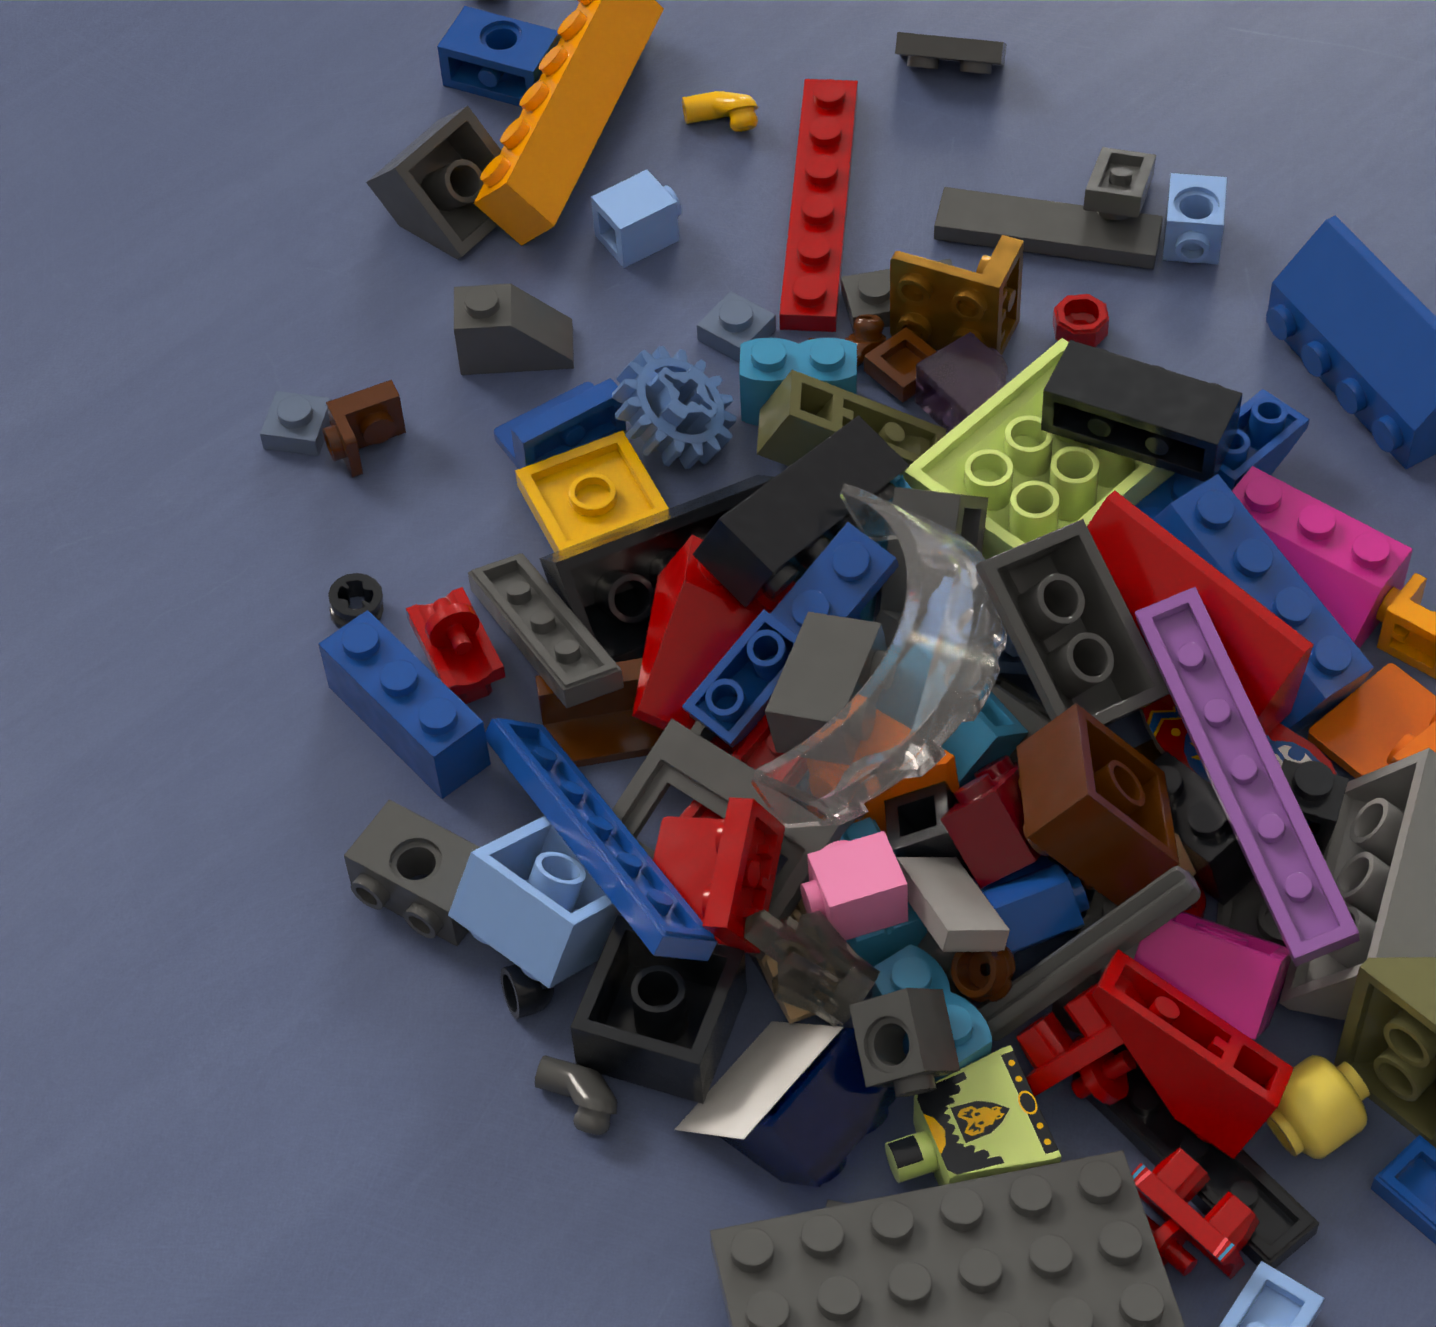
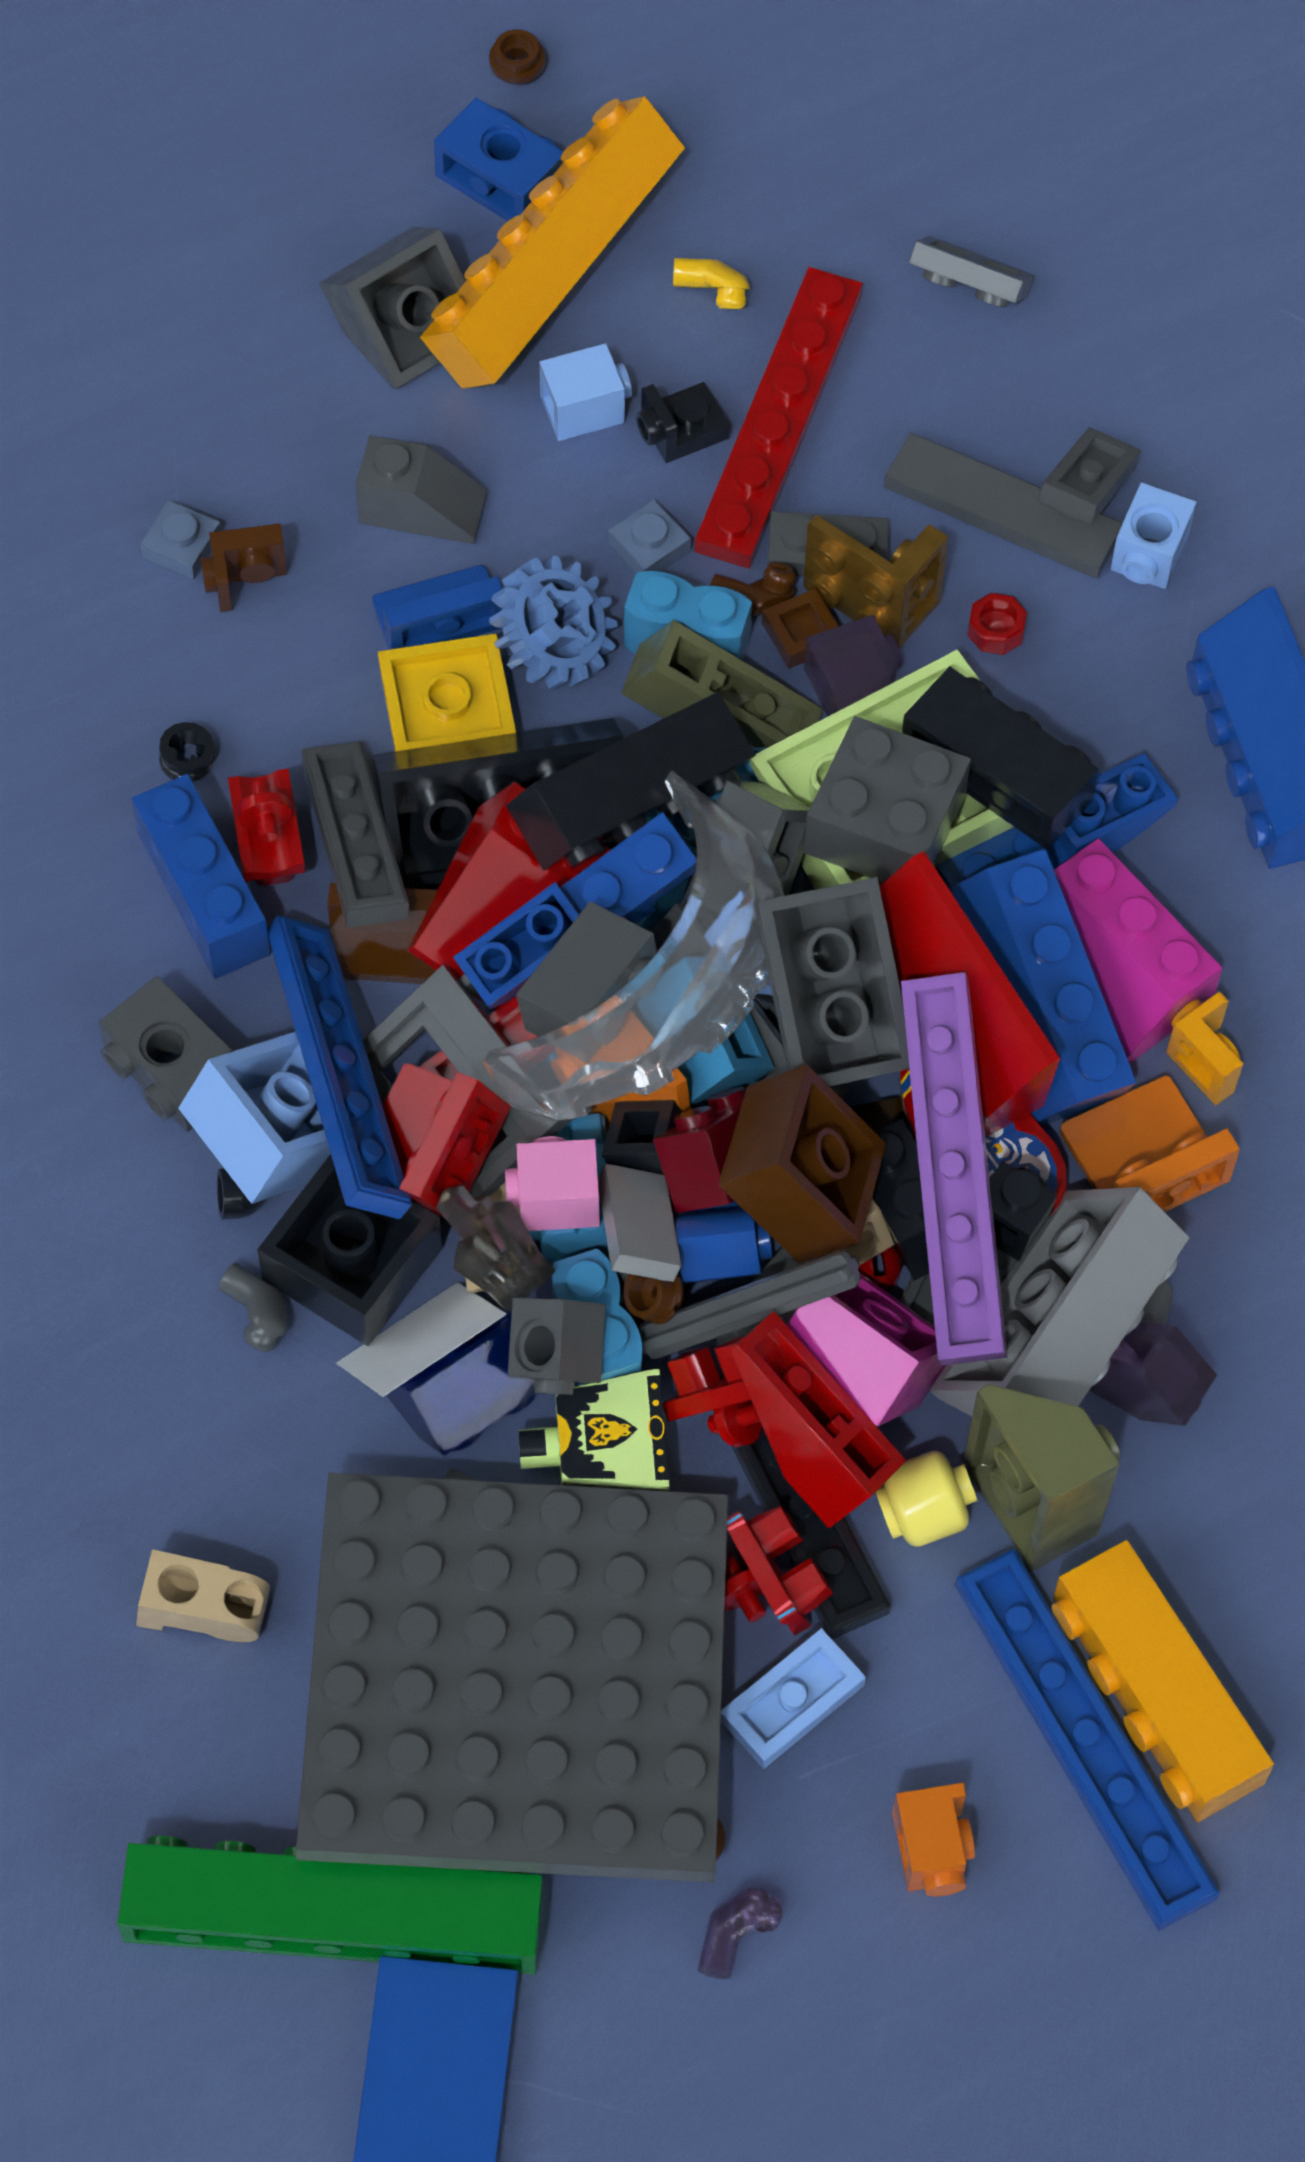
camera: 10 degrees right, 10 degrees up
(732, 225) = (681, 421): none -> black bracket
(1049, 467) = (885, 801): none -> dark grey brick

